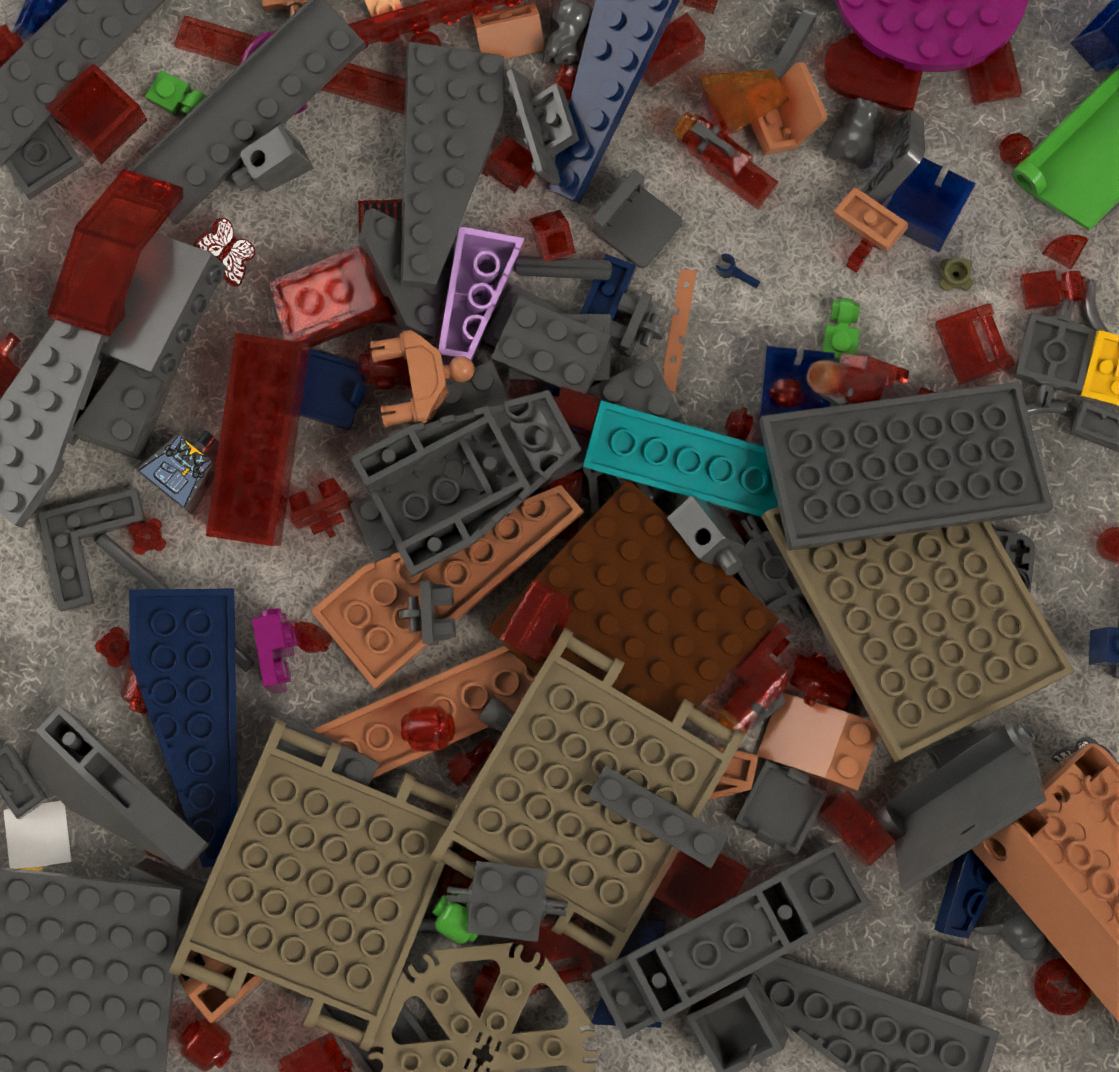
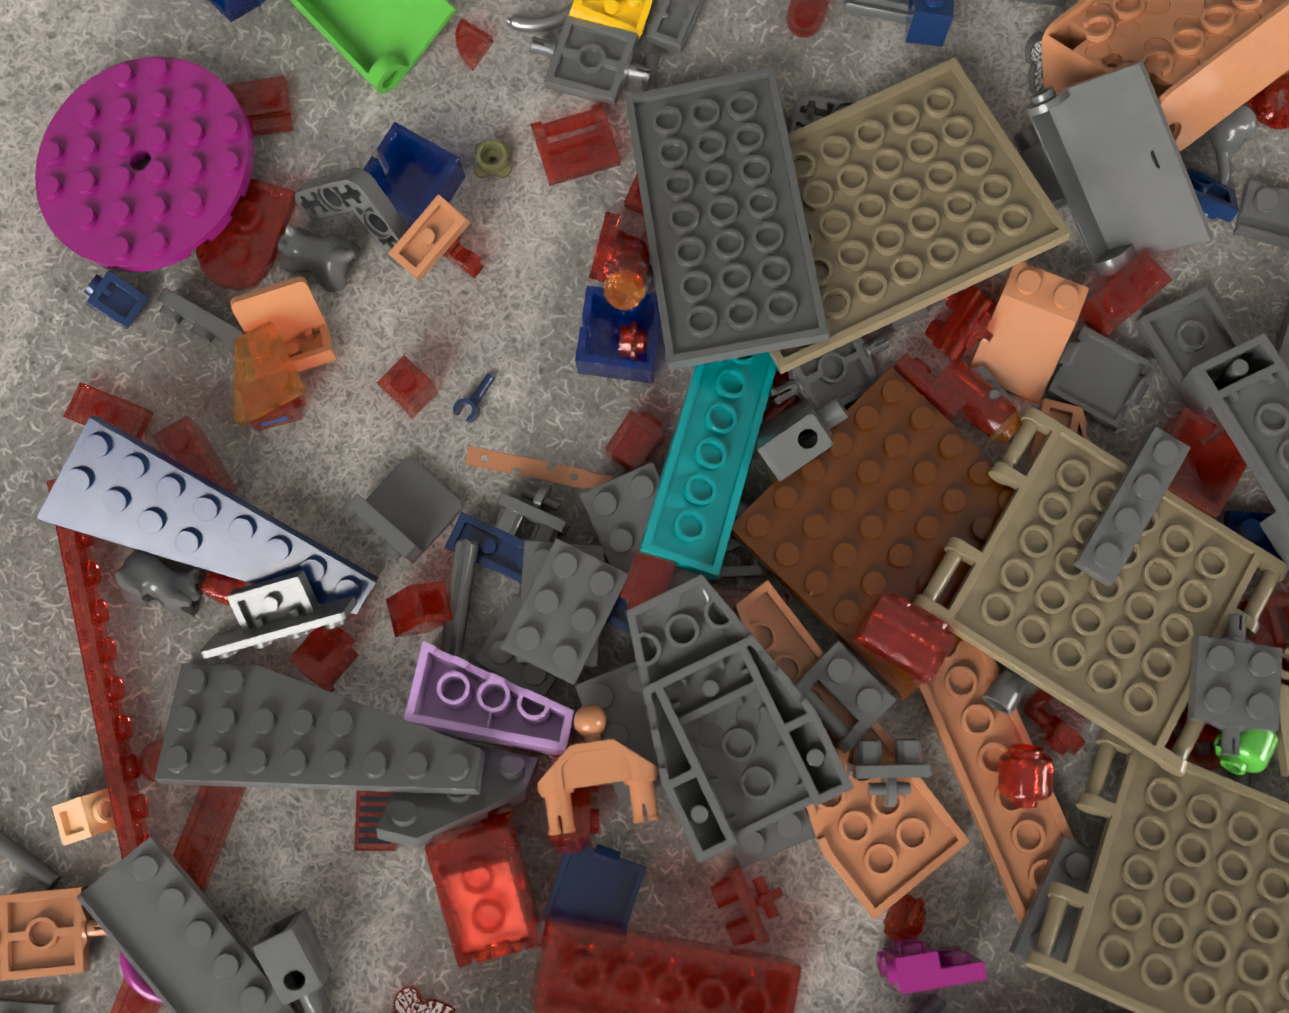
camera: 90 degrees left, 0 degrees up
(496, 582) = (852, 687): none -> dark grey plate
(510, 31) = (150, 654): nougat panel -> none
(703, 405) = (635, 441): none -> clear red brick
(725, 159) = (335, 405): clear red plate -> none
(739, 424) = (659, 402): clear red plate -> none
(741, 214) = (407, 387): none -> clear red brick
(841, 338) = (563, 287): bright green plate -> none
(1015, 148) = (350, 86): clear red plate -> none
(1044, 290) = (517, 65): clear red plate -> none

